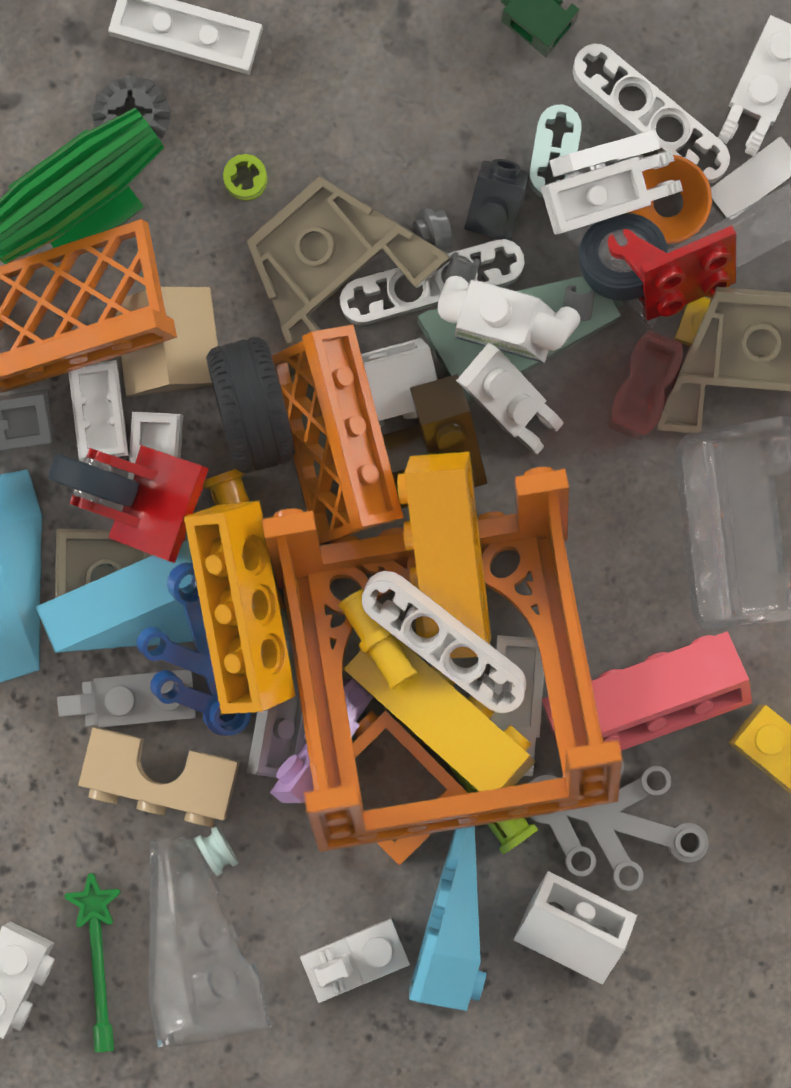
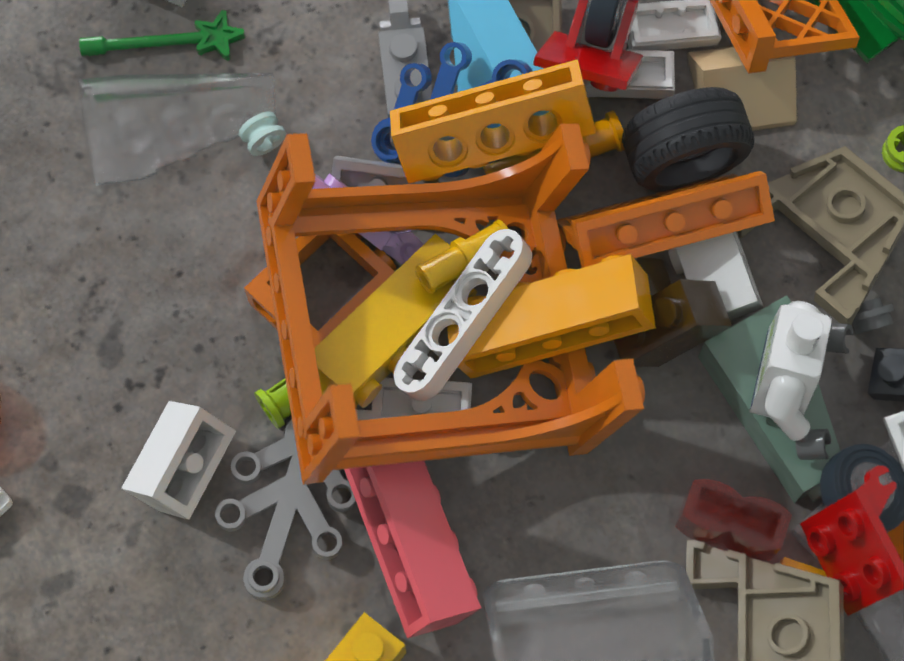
camera: 90 degrees right, 15 degrees down
(115, 770) = (339, 46): tan arch -> none
(354, 960) = (156, 262): white hinge -> none
(431, 288) = (812, 262): white beam -> none
(450, 950) = (159, 342): medium azure wedge -> none
(507, 396) = (713, 378): white hinge -> none

